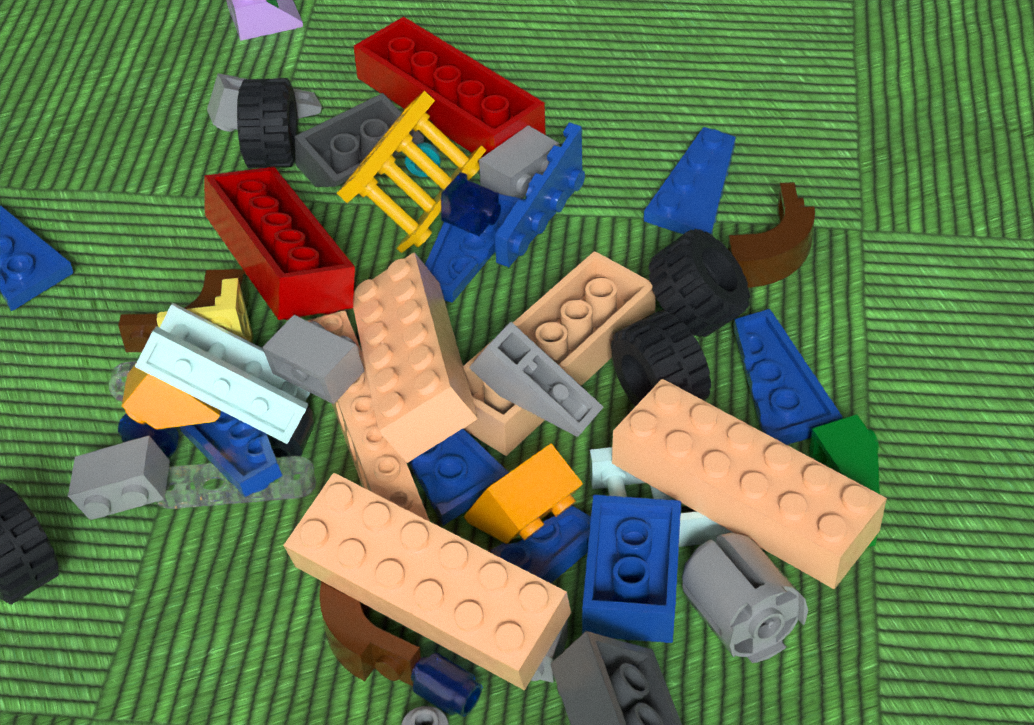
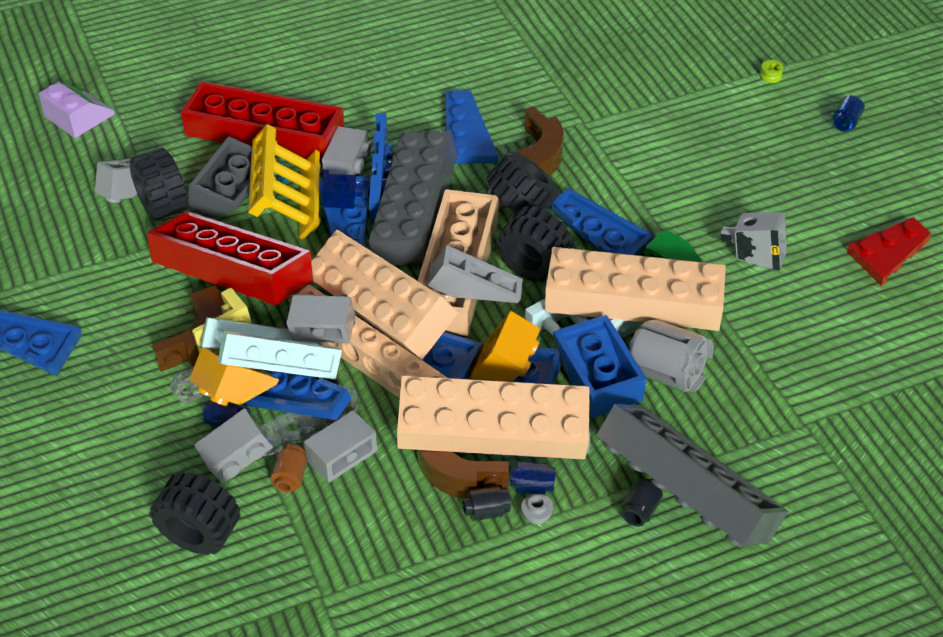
camera: 30 degrees left, 0 degrees up
(165, 535) = (289, 468): none -> dark orange brick
(243, 533) = (340, 446): none -> light grey brick
(363, 691) = (486, 503): none -> black brick
(589, 214) = (413, 196): none -> dark grey brick
(989, 481) = (759, 238): none -> light grey torso

